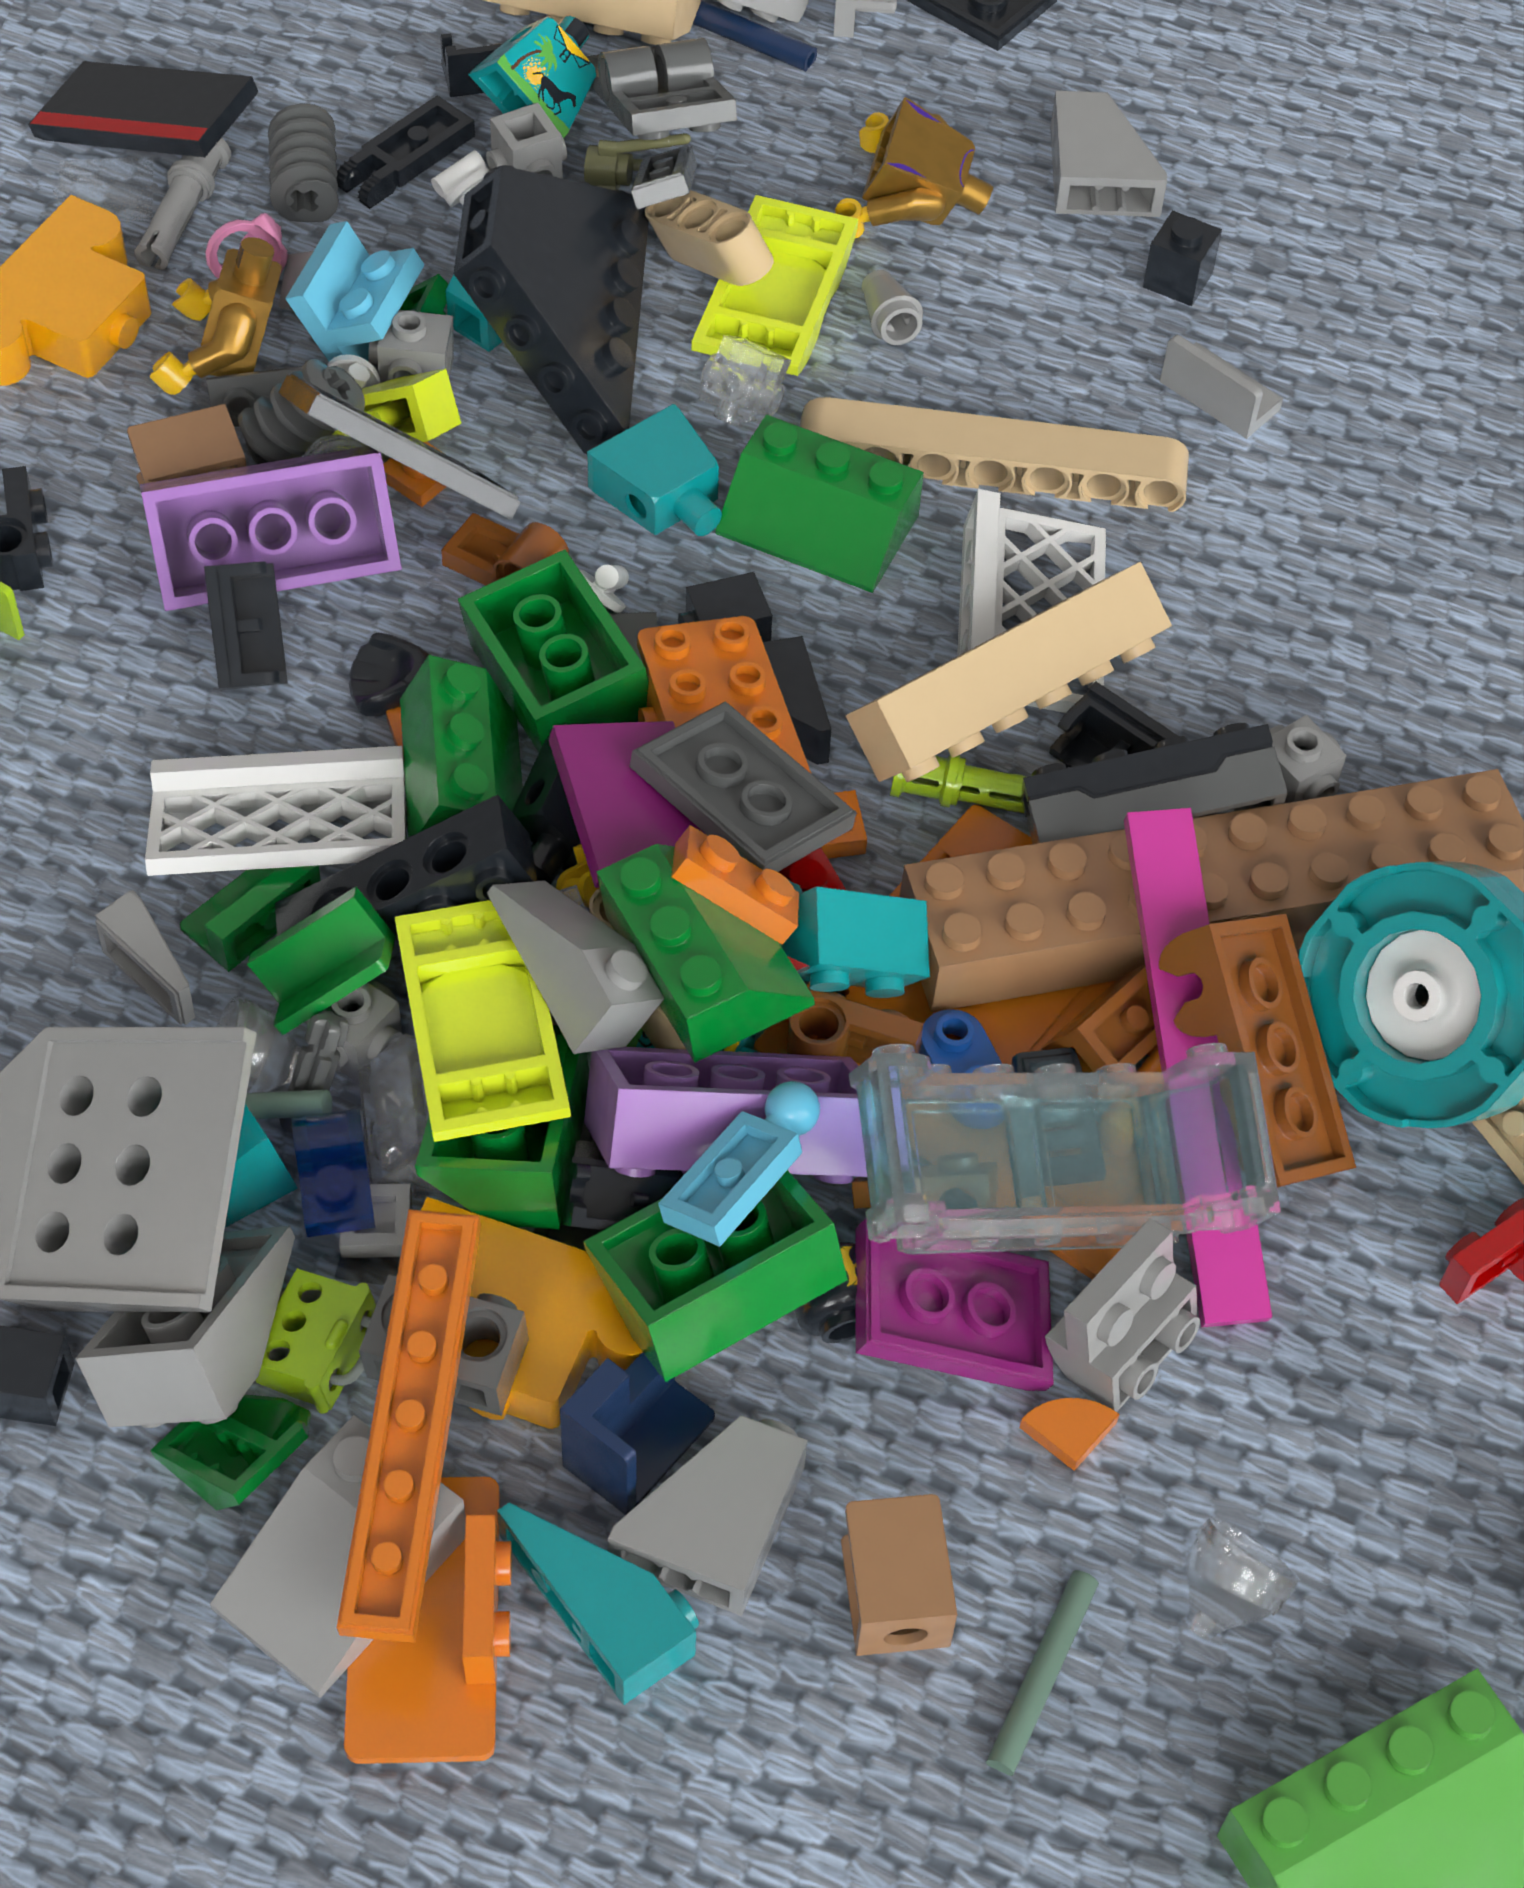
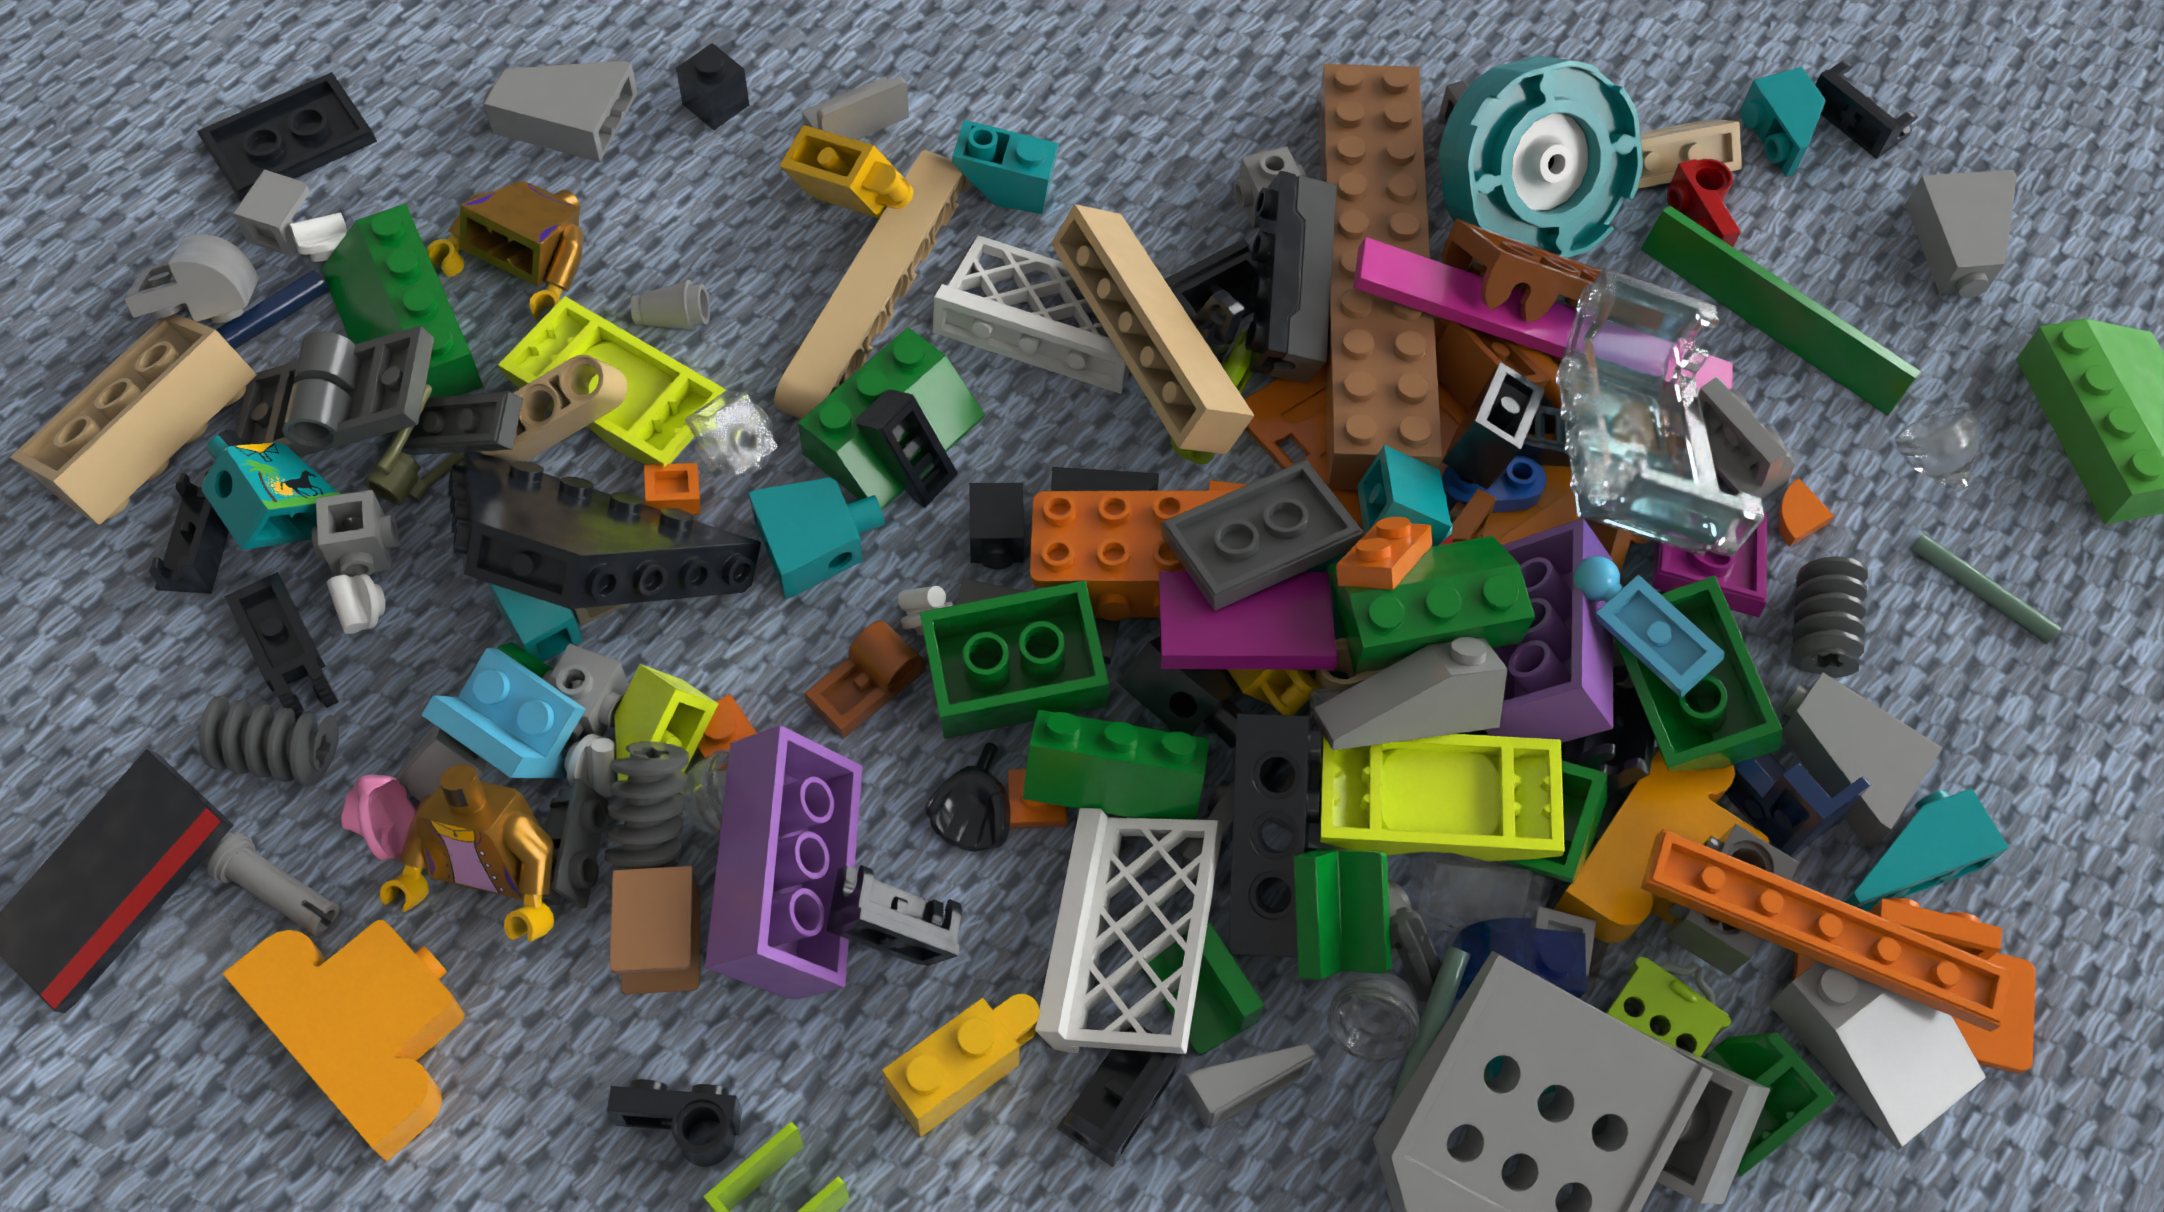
camera: 75 degrees left, 5 degrees up
(103, 863) = (1119, 1100): none -> black hinge
(108, 714) = (960, 1060): none -> yellow brick
(399, 445) = (752, 719): tile -> none
(670, 361) = (672, 487): none -> orange plate
(795, 470) = (885, 423): none -> black slope
(797, 122) = (389, 286): none -> green slope
(852, 39) = (318, 236): none -> white plate
(898, 1575) = (1926, 649): medium nougat piece -> none
(912, 1457) = (1829, 616): none -> dark grey piece
(1008, 1012) = (1494, 427): none -> black slope
(1039, 741) = (1219, 322): none -> black hinge
(1108, 377) = (845, 172): none -> yellow brick
(1196, 517) = (1006, 165): none -> teal slope
(1379, 1362) = (1780, 310): none -> green tile

